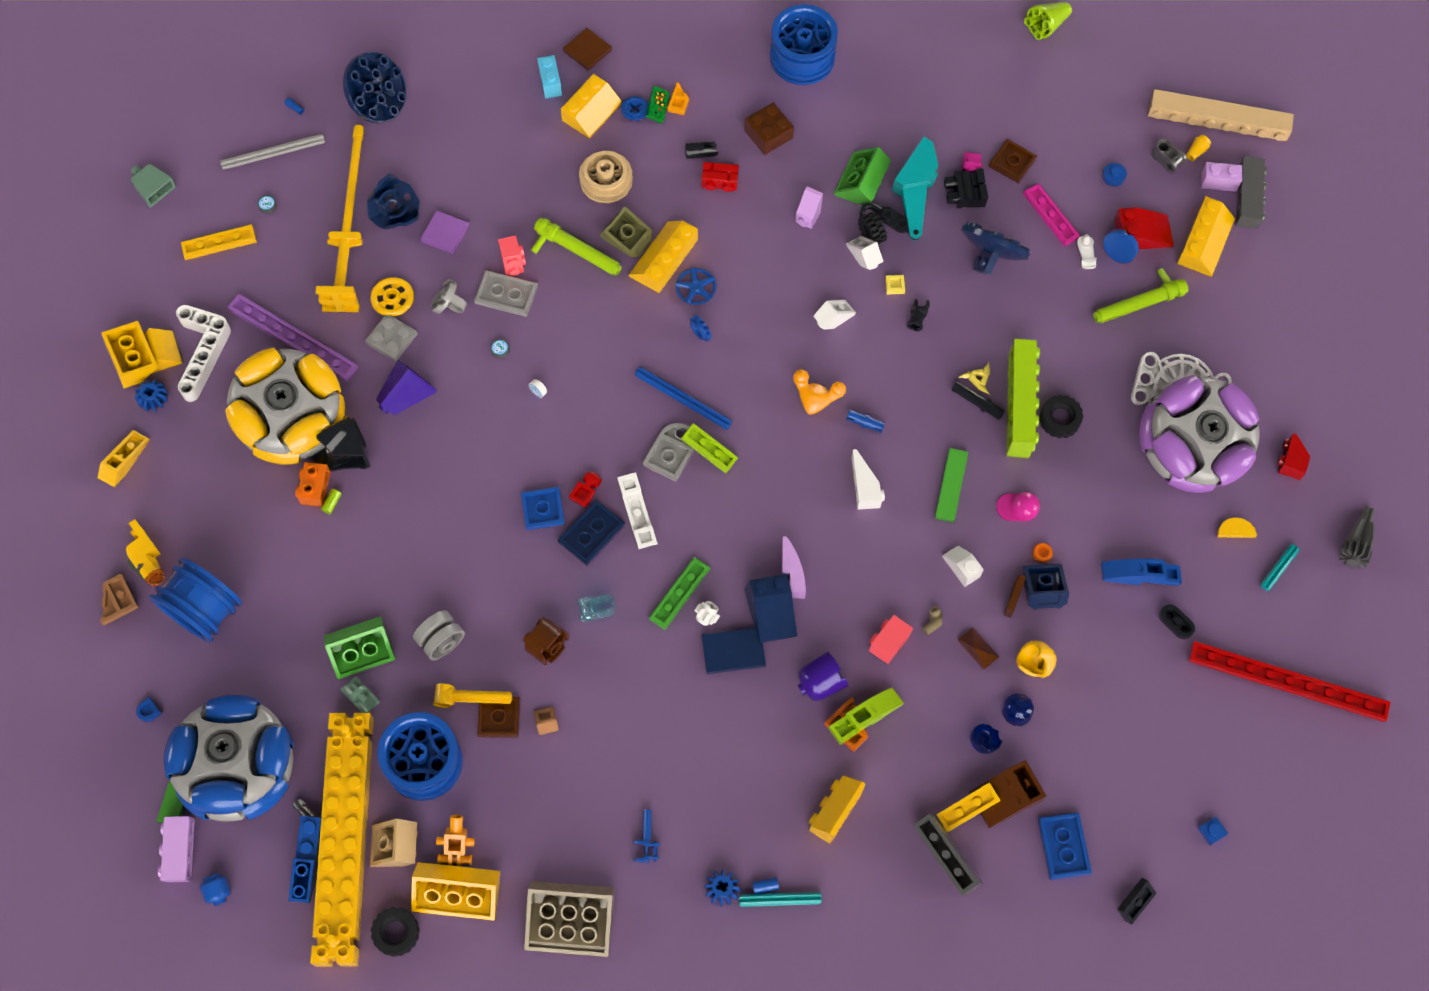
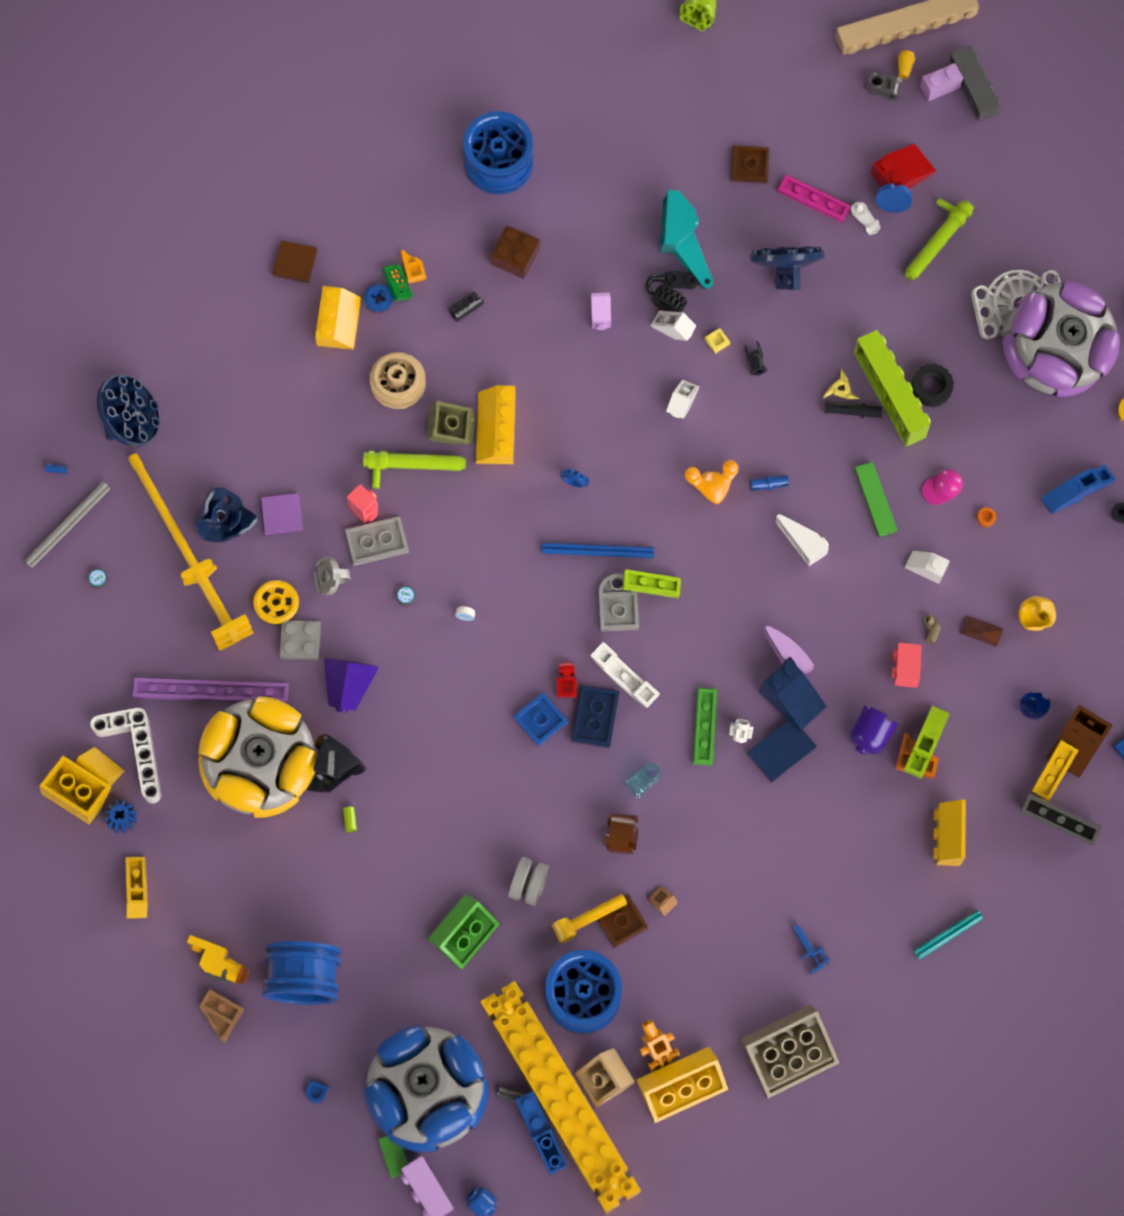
camera: 30 degrees left, 5 degrees up
(218, 242) = (77, 639): yellow tile -> none
(313, 484) = (325, 813): orange brick -> none
(360, 695) = (494, 971): sand green hips -> none
(380, 924) = (665, 1135): black tyre -> none
(549, 76) = (280, 309): medium azure brick -> none
(696, 286) = (543, 439): blue wheel -> none
(720, 176) = (499, 323): red brick -> none
(725, 881) = (894, 945): blue gear -> none
(765, 885) = (930, 930): blue piece -> none
(863, 175) = (627, 252): bright green slope -> none
(968, 189) = (728, 214): black hips -> none
(971, 162) = (716, 187): dark pink bracket -> none
(1014, 596) = (986, 568): reddish brown tile -> none
(1018, 709) = (1045, 664): clear blue hair -> none
(1045, 586) = (1006, 544): dark blue slope -> none
(1114, 174) = (847, 129): blue wheel -> none
(1207, 237) = (960, 147): yellow slope -> none

